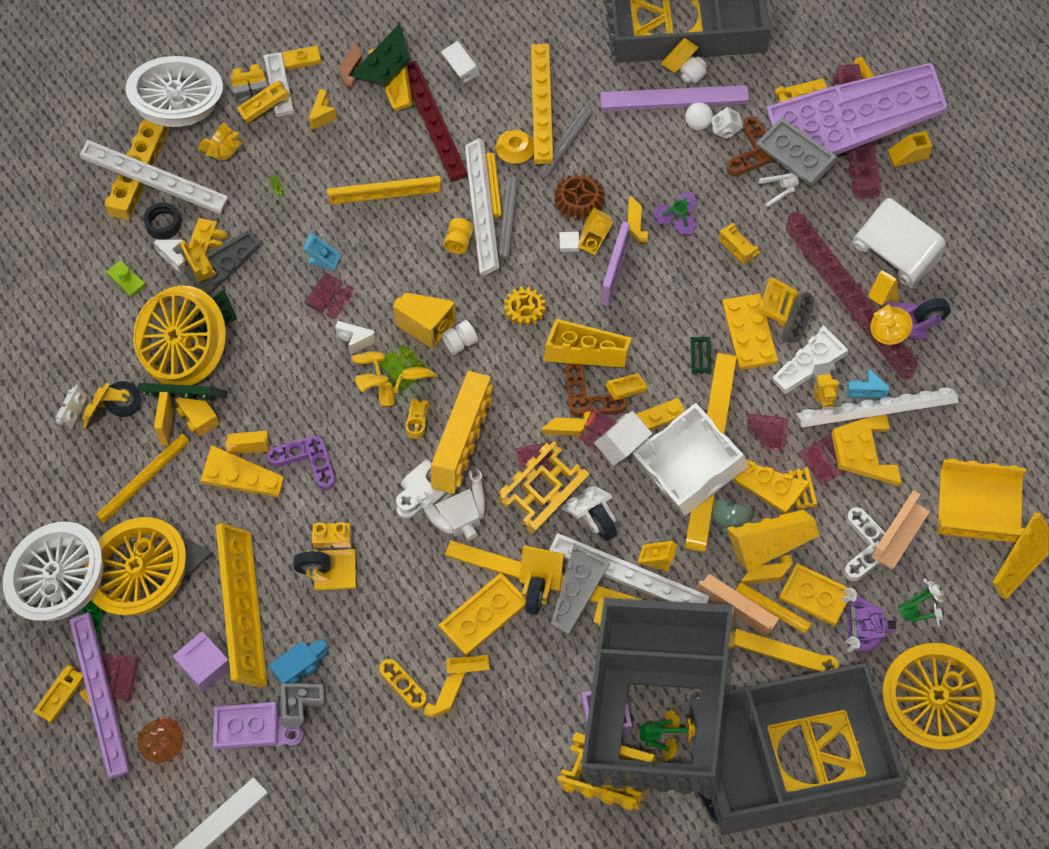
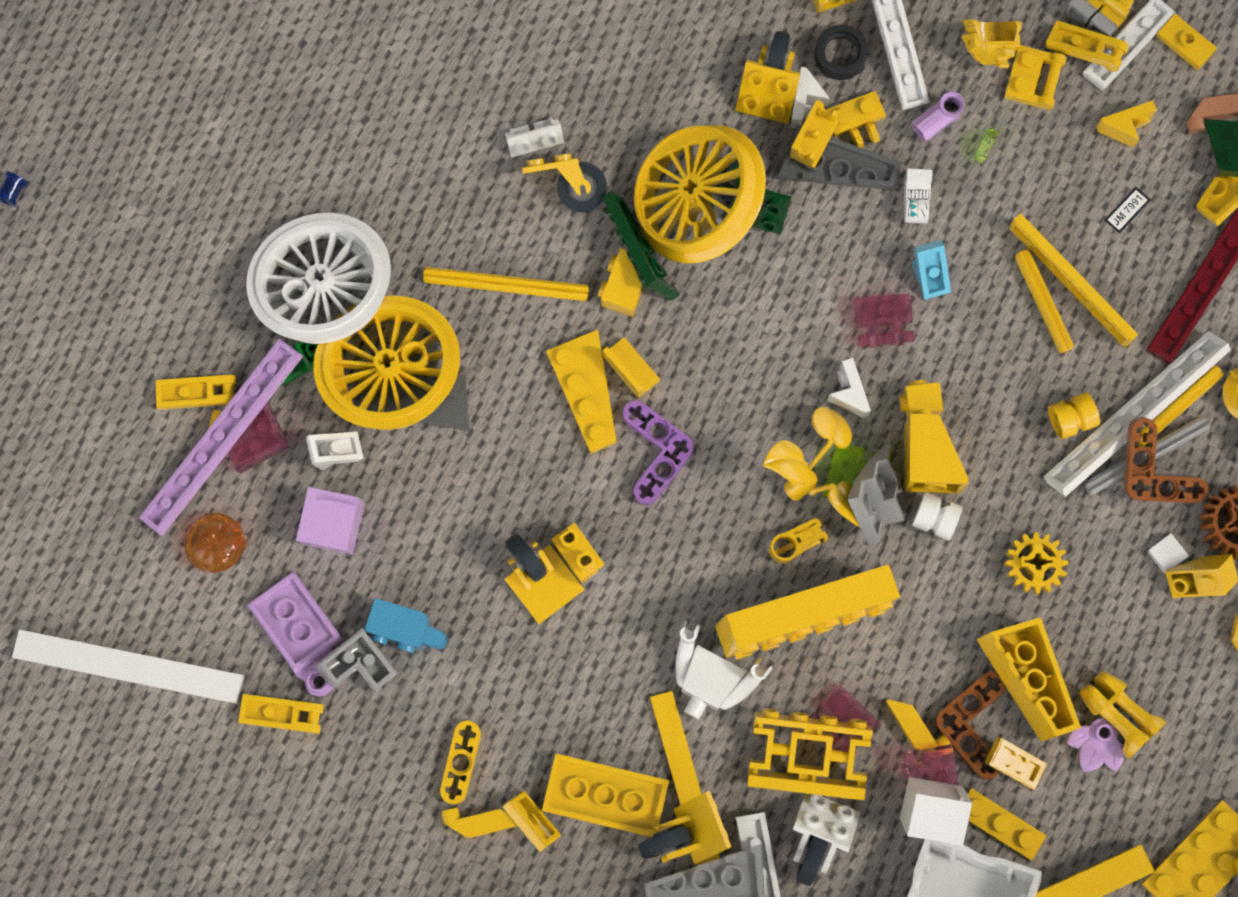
camera: 55 degrees right, 15 degrees up
(126, 279) = (734, 67): lime tile -> none
(148, 264) = (769, 89): none -> yellow plate
(160, 633) = (334, 449): none -> white slope
(164, 418) = (587, 254): yellow tile -> none
(239, 195) = (937, 117): none -> lavender piece
(241, 606) = (425, 513): yellow plate -> none
(254, 143) = (1026, 74): none -> yellow plate
(273, 234) = (917, 195): none -> white leg
(293, 770) = (279, 713): none -> yellow plate
(368, 143) = (1127, 210): none -> sticker
(384, 212) = (1044, 301): none -> yellow axle
(385, 302) = (921, 397): none -> yellow brick
(415, 485) = (705, 610): white piece -> none
(424, 357) = (877, 496): none -> light grey slope
(517, 221) = (1146, 472): none -> dark orange beam
(615, 264) = (1172, 636): lavender tile -> none
(623, 318) = (1114, 691): none -> yellow piece
(647, 343) = (1094, 748): none -> lavender plate
(700, 370) = (1105, 838): dark green tile -> none

